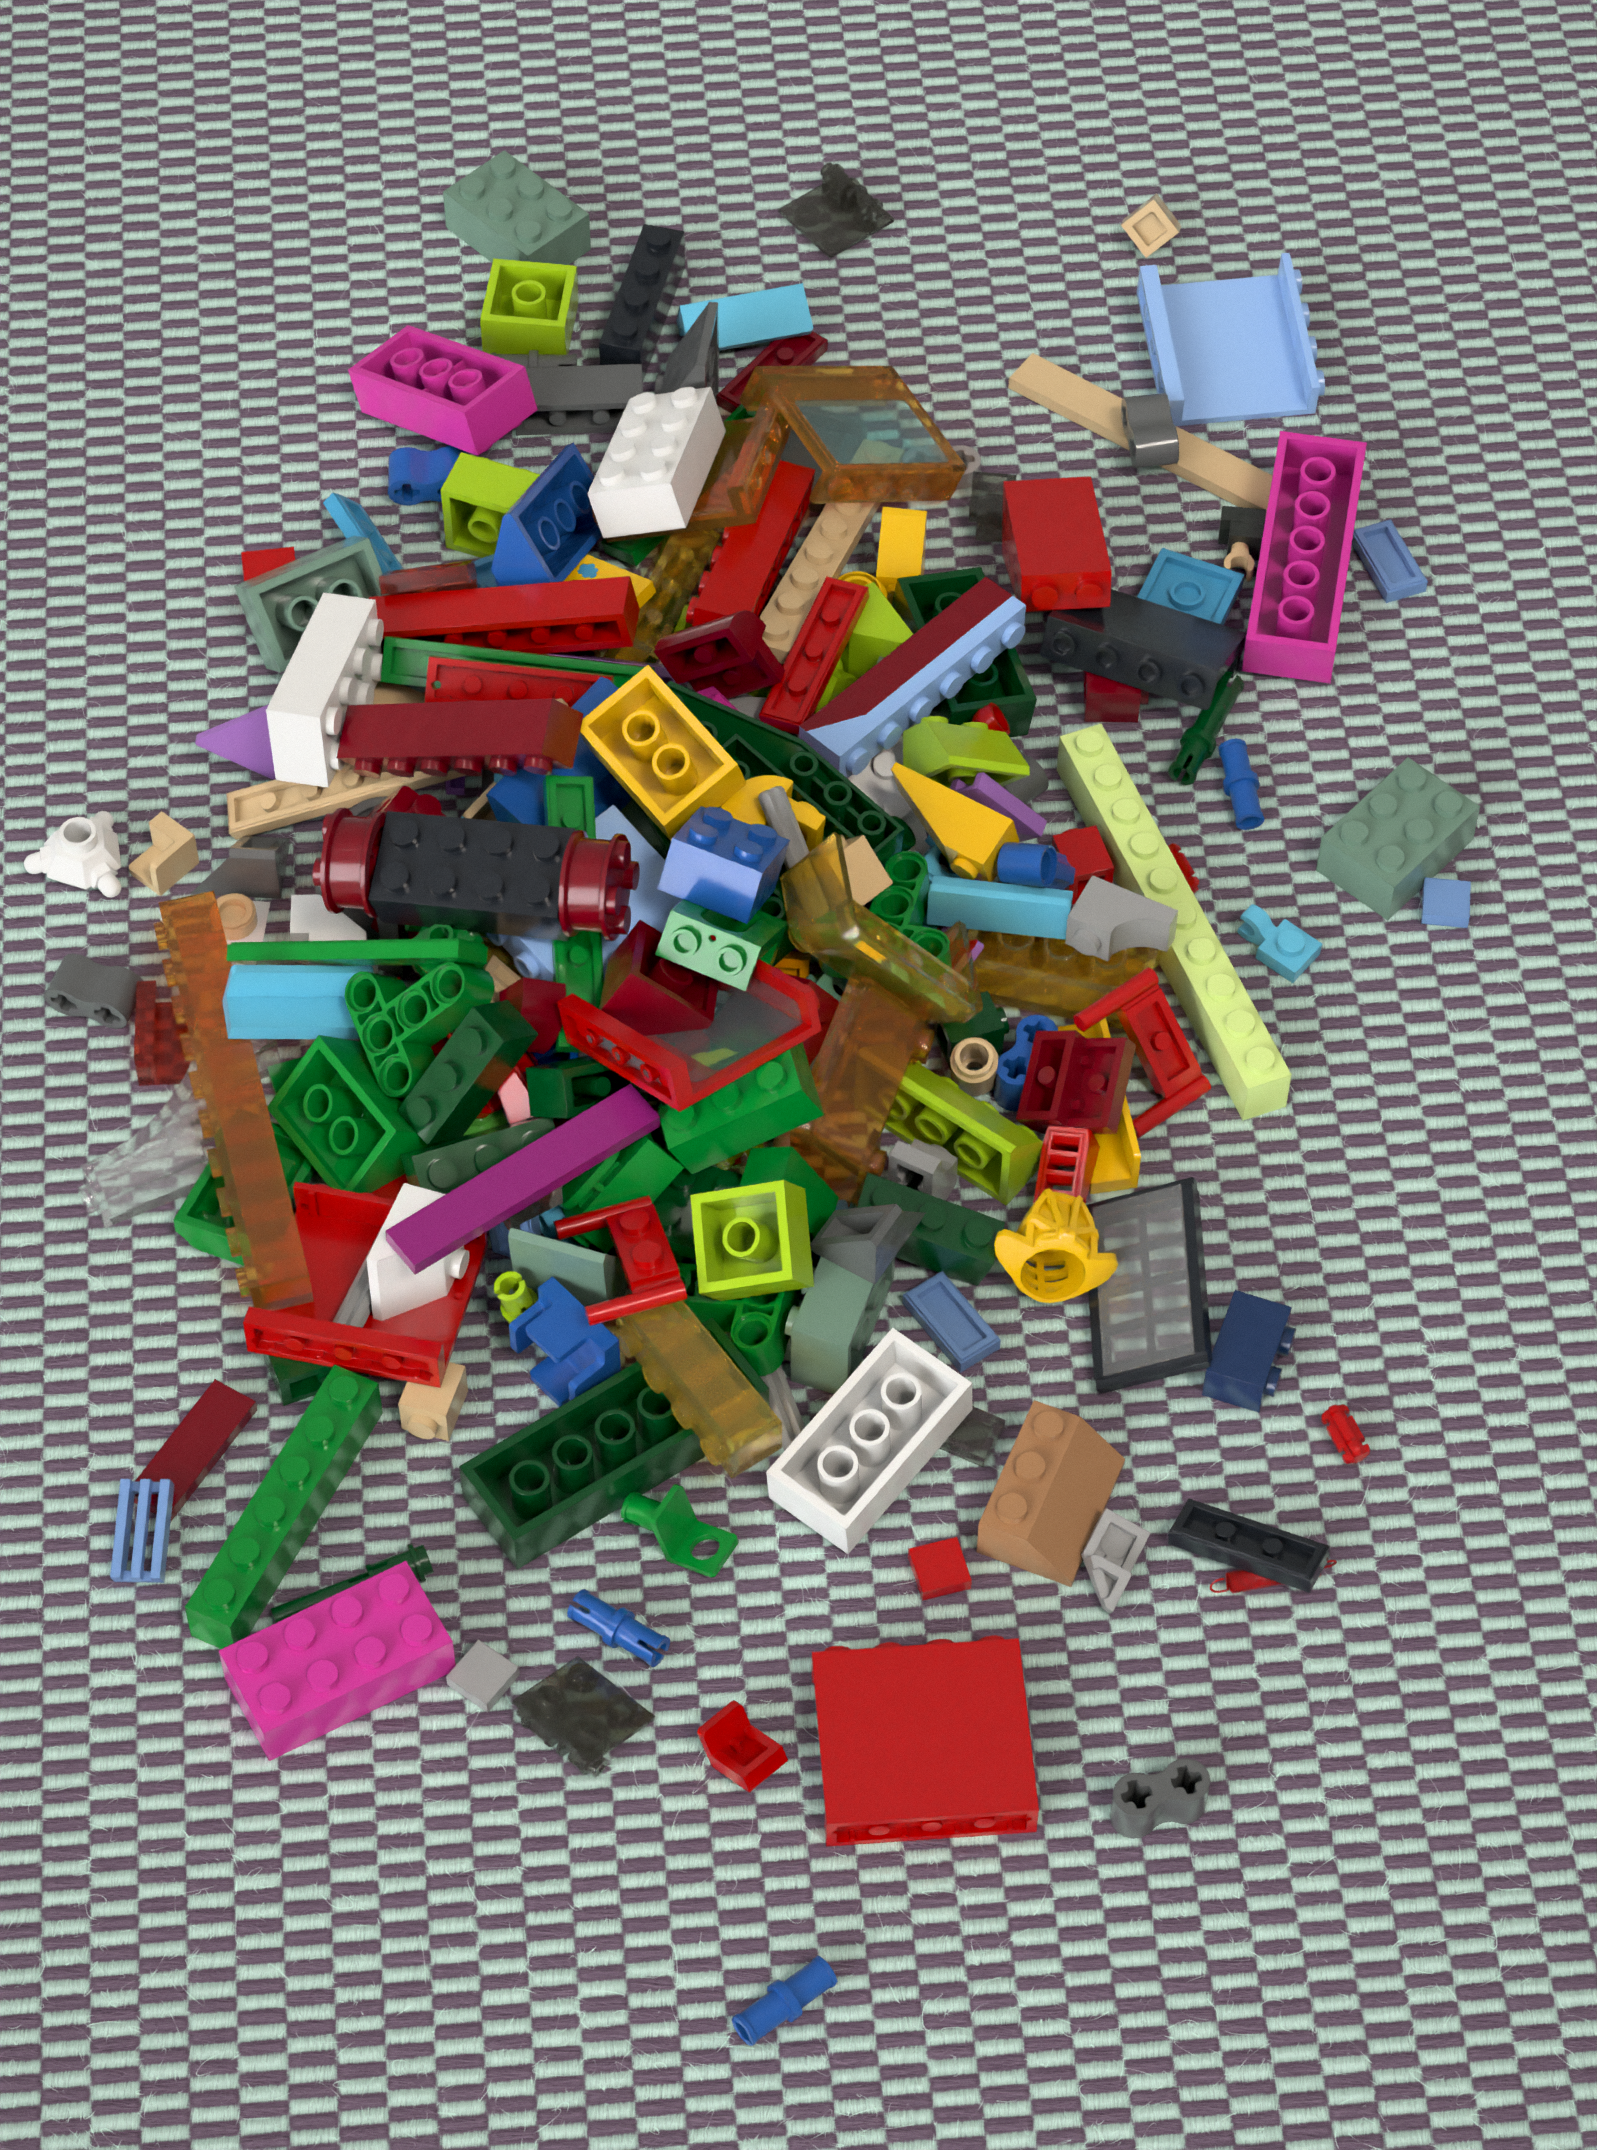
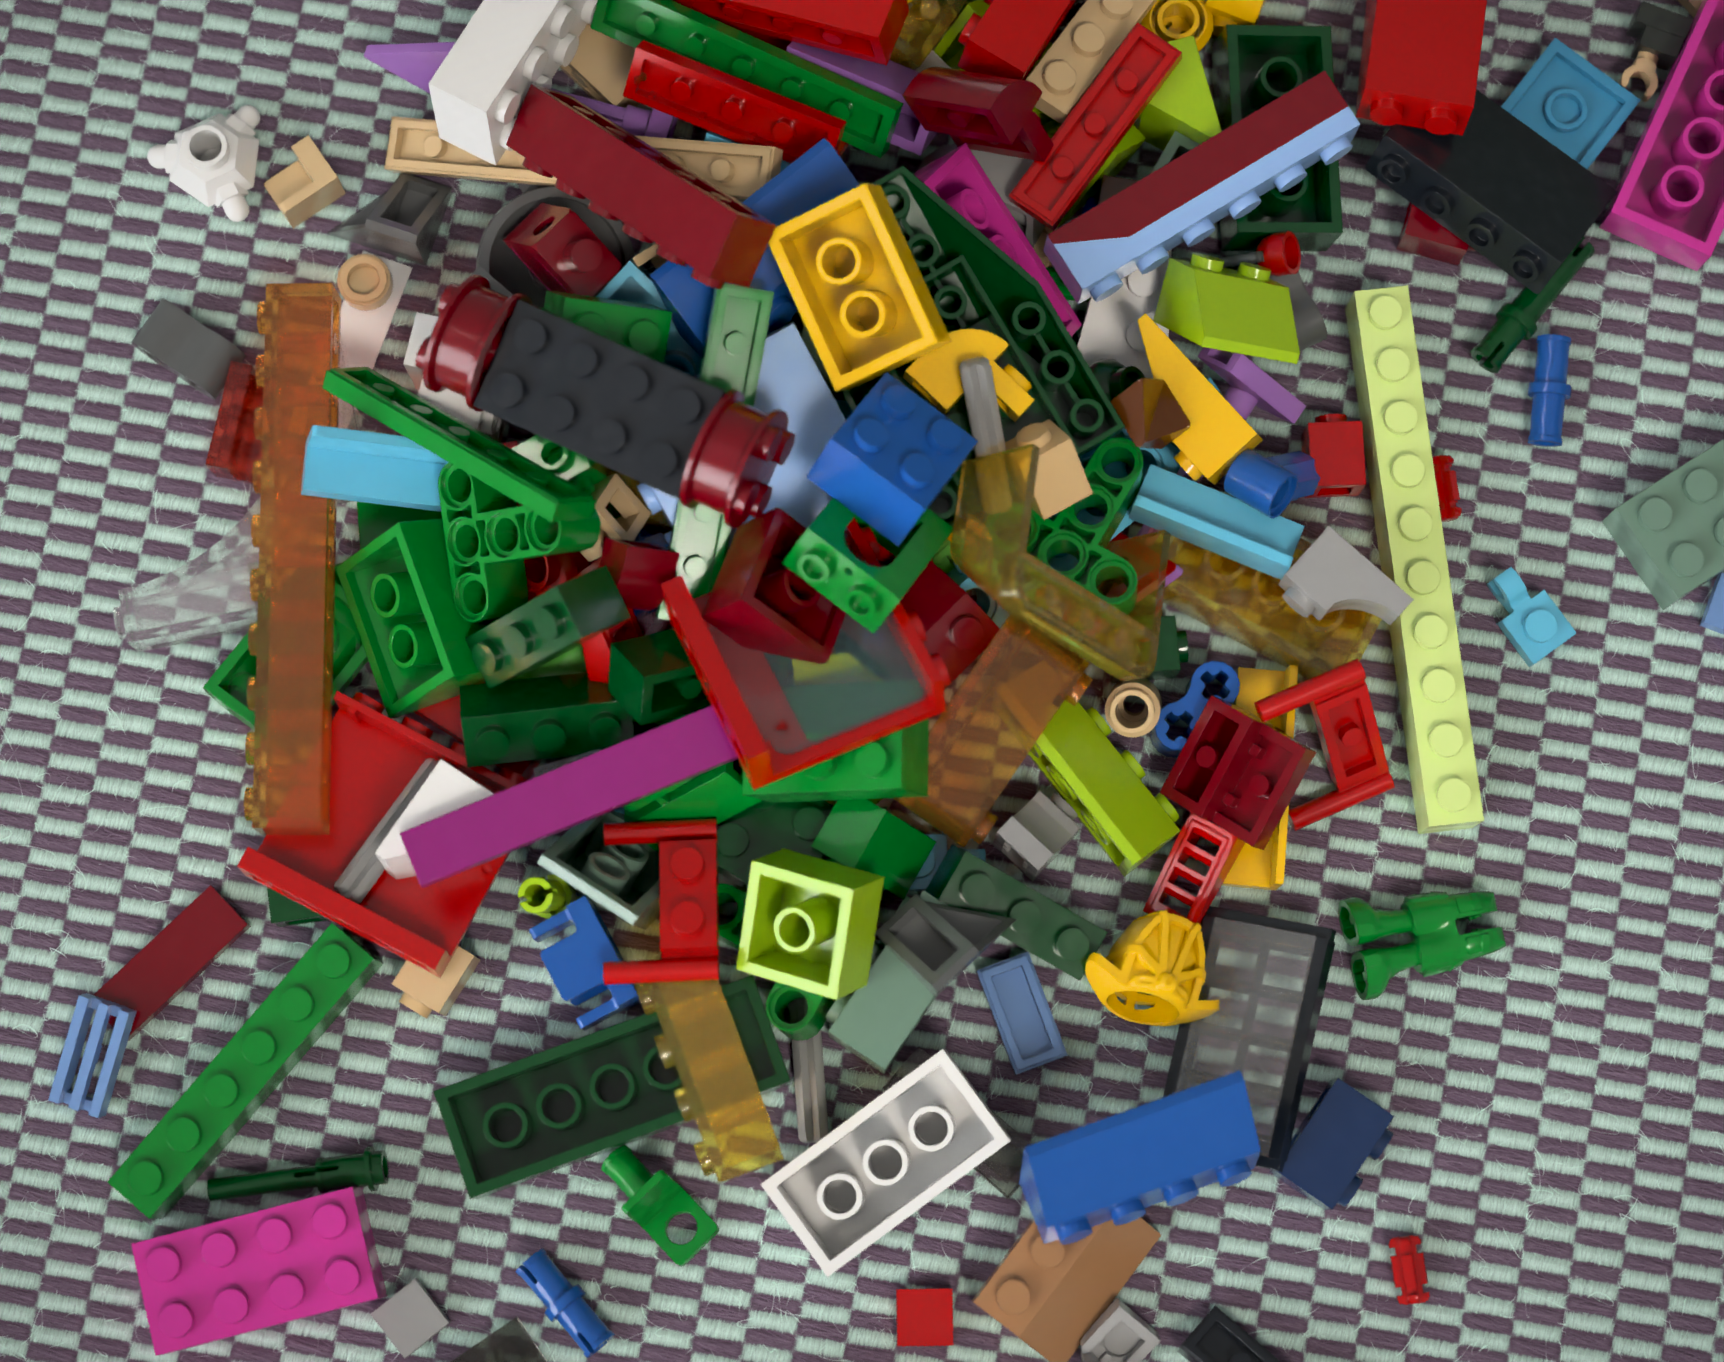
camera: 15 degrees right, 25 degrees up
(923, 823) = (1150, 413): none -> reddish brown slope
(1084, 1357) = (1140, 1159): none -> blue slope
(1279, 1181) = (1433, 933): none -> green piece

